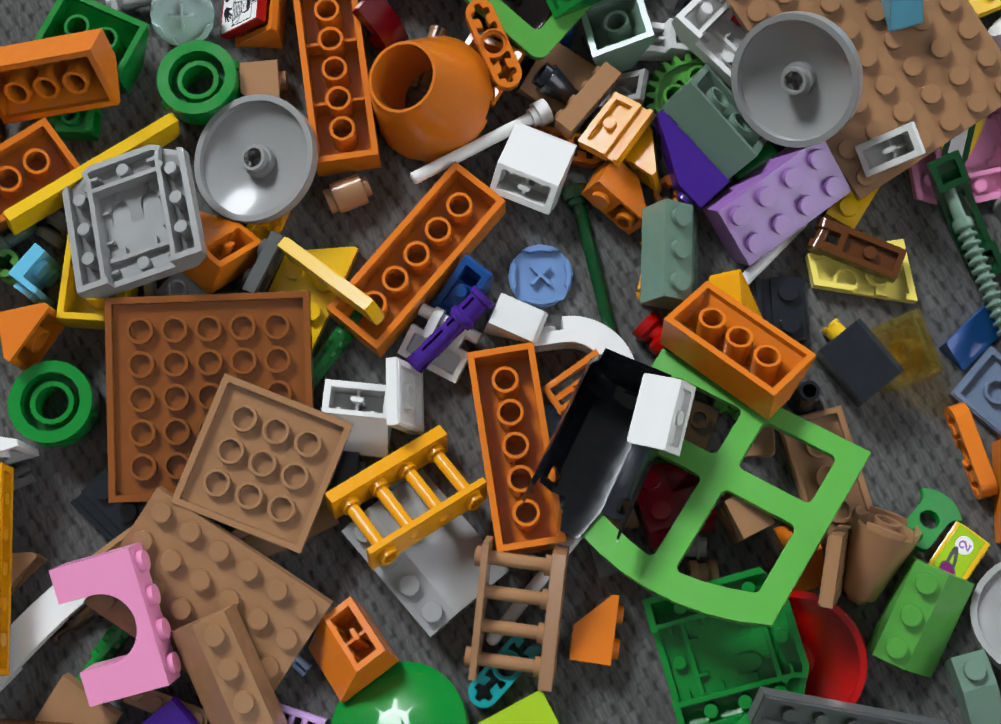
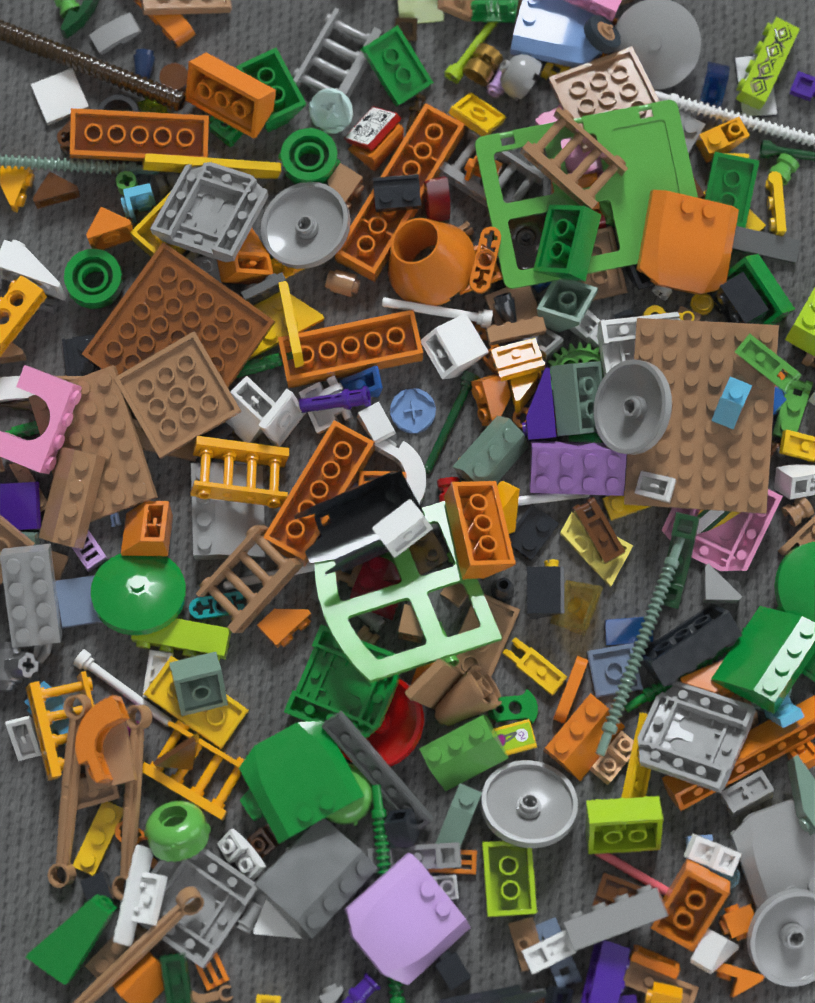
camera: 35 degrees right, 0 degrees up
(332, 46) = (397, 193): none -> black plate
(914, 455) = (536, 667): none -> yellow hinge

